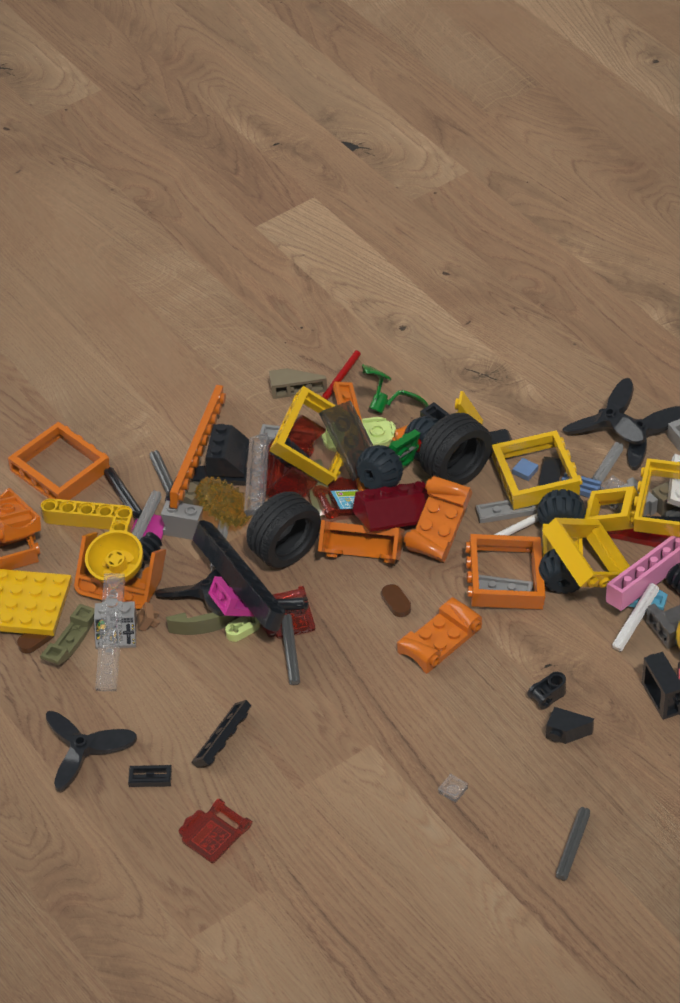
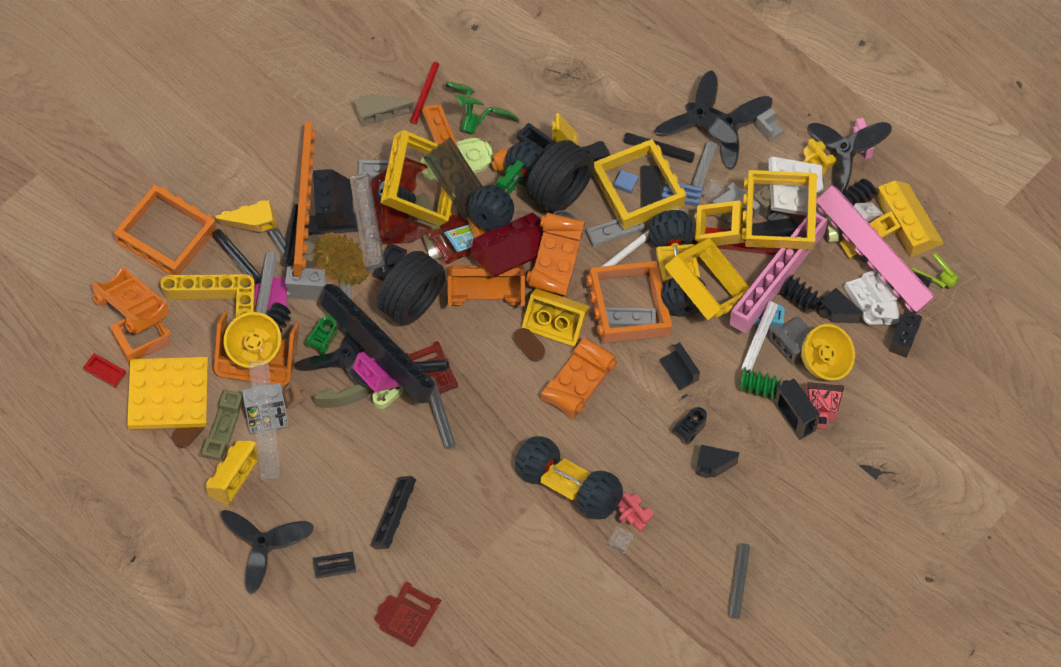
camera: 15 degrees left, 15 degrees up
(68, 677) = (233, 471): none -> yellow slope
(144, 459) = (255, 217): none -> yellow slope
(189, 567) = (321, 338): none -> green piece
(427, 577) = (555, 317): none -> yellow slope
(433, 737) = (596, 492): none -> black plate
(469, 762) = (632, 512): none -> coral hips
(548, 637) = (680, 367): none -> black panel
(572, 446) = (666, 149): none -> black axle
(625, 659) = (759, 383): none -> green piece

